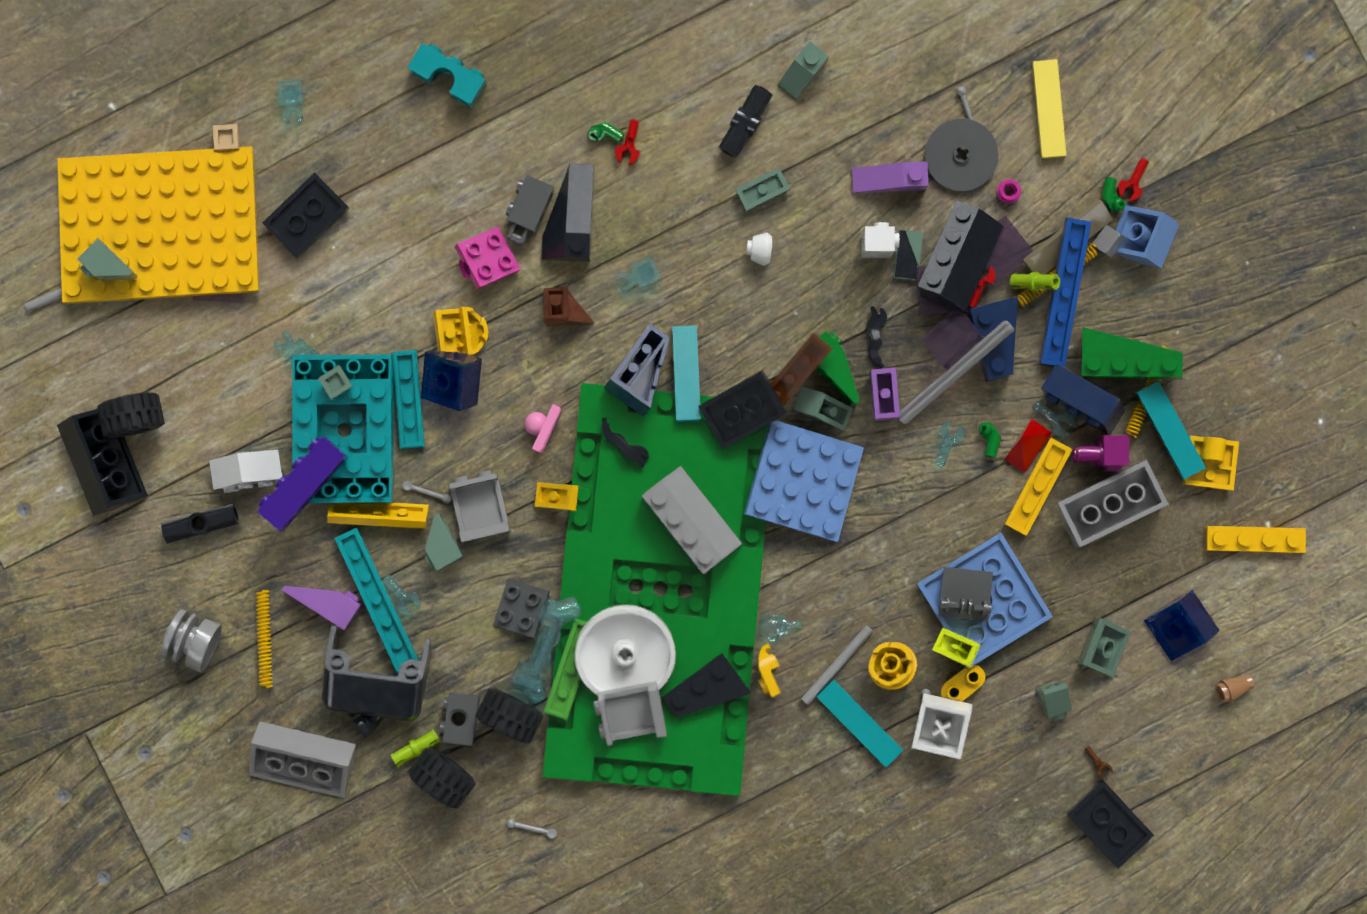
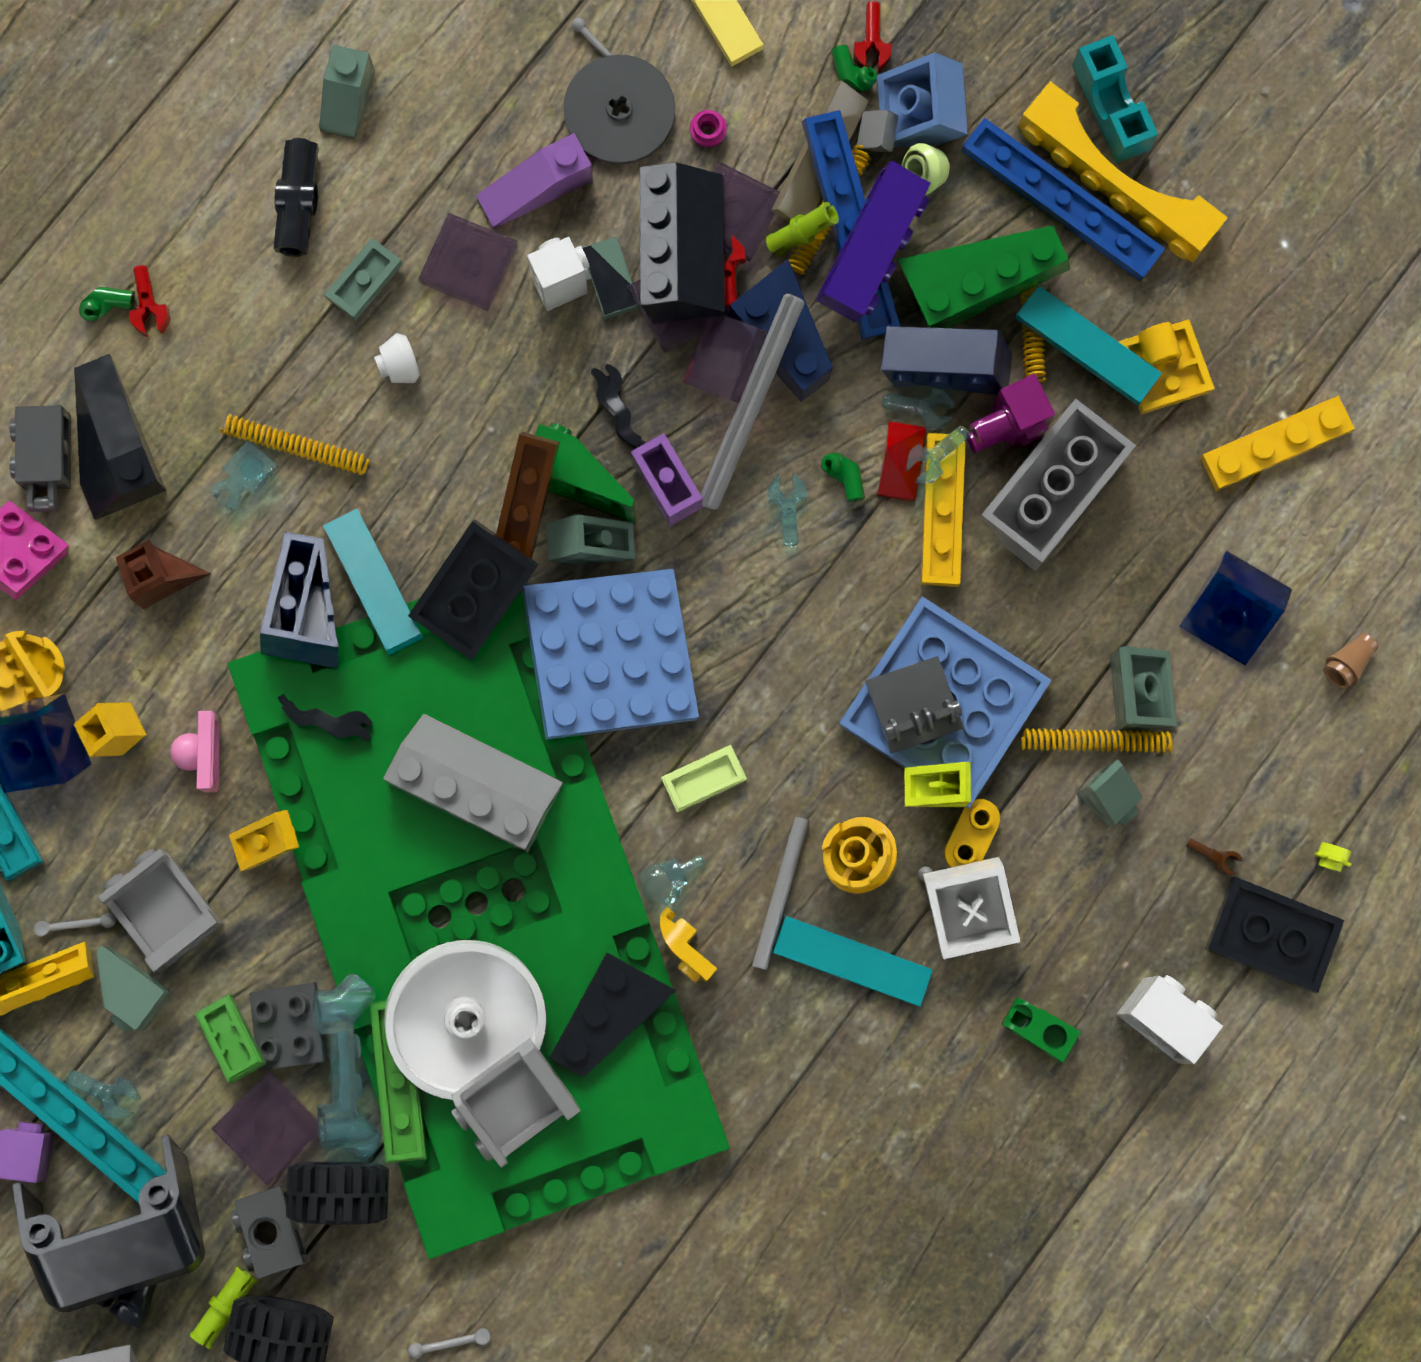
camera: 30 degrees left, 5 degrees down
(484, 659) = (267, 1127): none -> clear purple tile
(486, 599) = (230, 1038): none -> bright green plate
(497, 390) = (110, 729): none -> yellow brick
(698, 292) = (297, 442): none -> yellow piece
(824, 578) = (704, 778): none -> yellowish green tile
(828, 206) = (468, 261): none -> clear purple tile
(948, 813) = (1040, 1029): none -> green leg
(1025, 844) = (1171, 1019): none -> white brick
(1049, 453) = (935, 455): none -> clear light blue bar
(1062, 663) = (1045, 732): none -> yellow piece
(1073, 310) = (873, 242): none -> dark purple brick
(1126, 277) = (928, 164): none -> yellowish green cone
(1166, 796) = (1333, 856): none -> neon yellow plate
(1199, 333) = (1062, 199): none -> blue plate
(1259, 273) = (1103, 80): none -> teal arch
(1264, 382) = (1179, 222): none -> yellow arch

